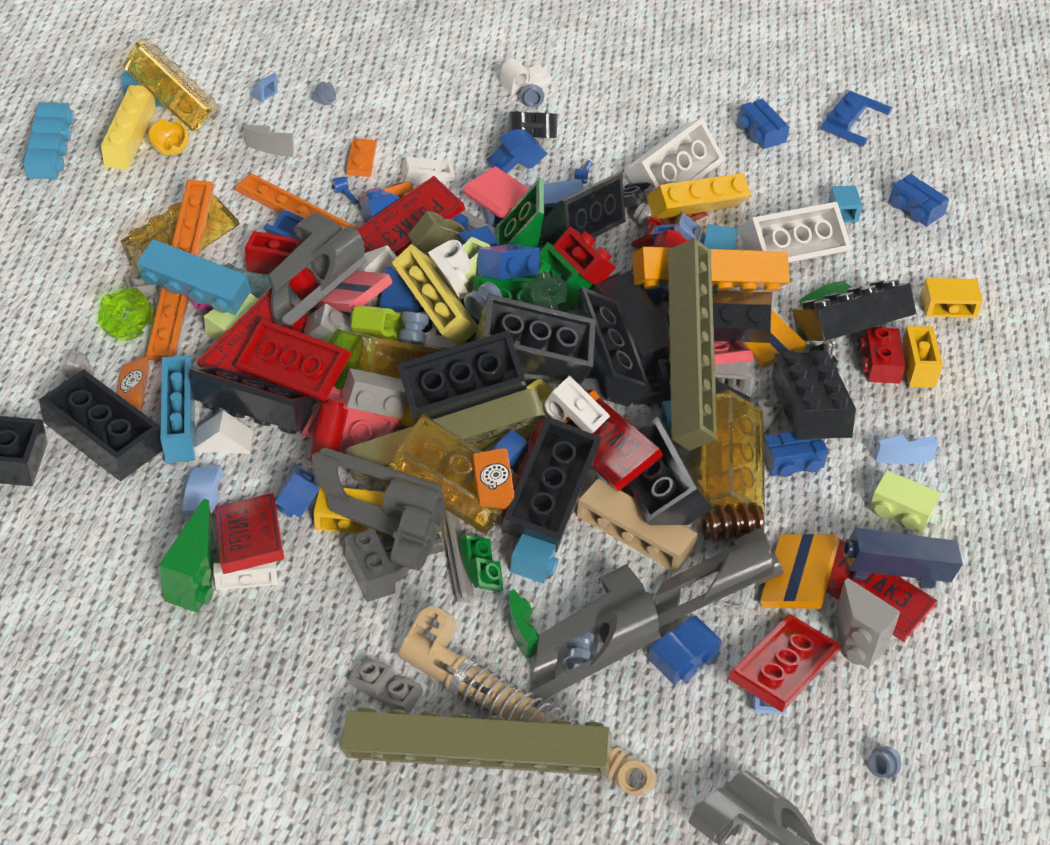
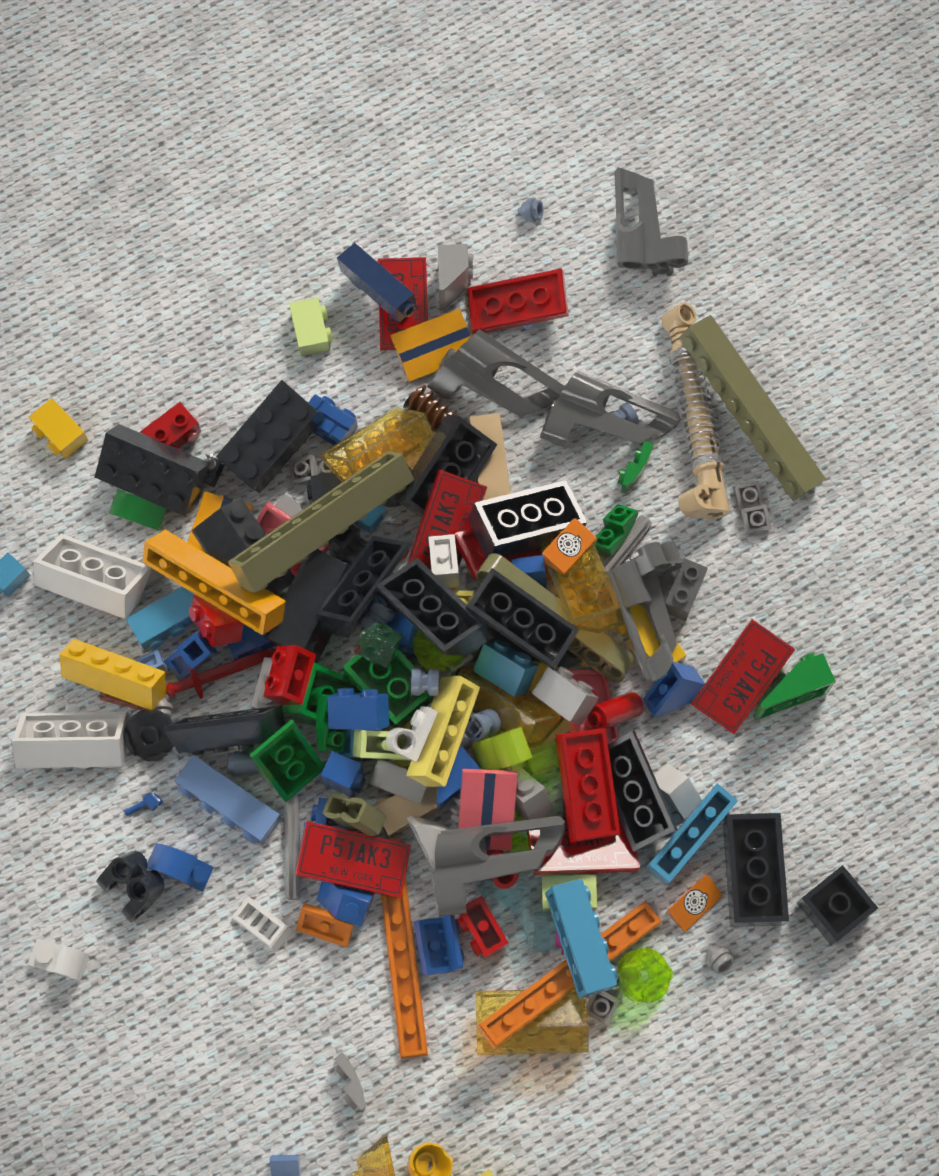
camera: 130 degrees left, 25 degrees up
(200, 486) = (732, 753): light blue slope -> none
(324, 93) = (243, 1105): sand blue plate -> none
(341, 185) = (346, 974): blue hand -> none
(361, 157) = (294, 993): orange plate -> none
(495, 191) = (254, 817): coral tile -> none
(532, 95) = (80, 930): sand blue plate -> none
(534, 559) = (584, 499): dark azure brick -> none
(684, 650) = (561, 362): blue brick -> none
(900, 451) = (263, 361): light blue slope -> none
(921, 356) = (153, 400): yellow brick -> none

